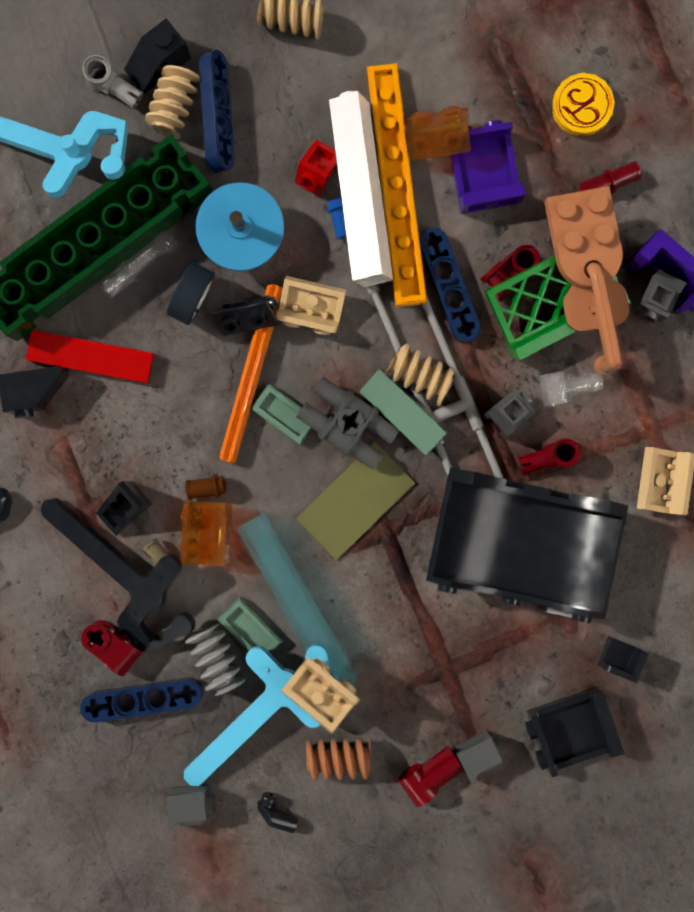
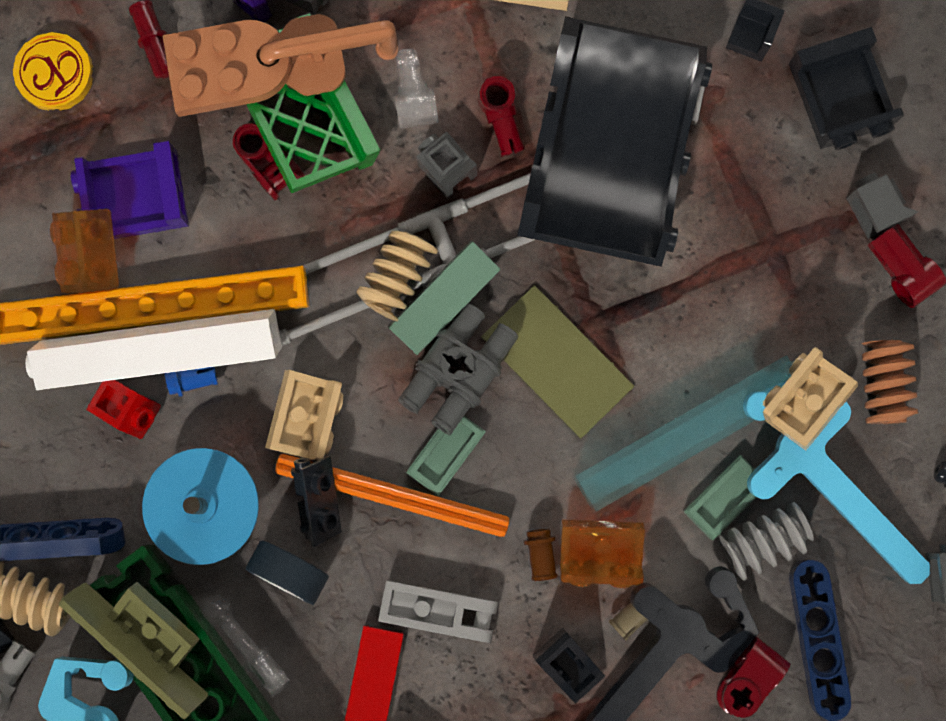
camera: 90 degrees left, 5 degrees down
(136, 184) = (143, 639): none -> olive bracket
(163, 408) = (436, 611): none -> light grey plate
(453, 284) = (279, 233): dark blue beam -> none

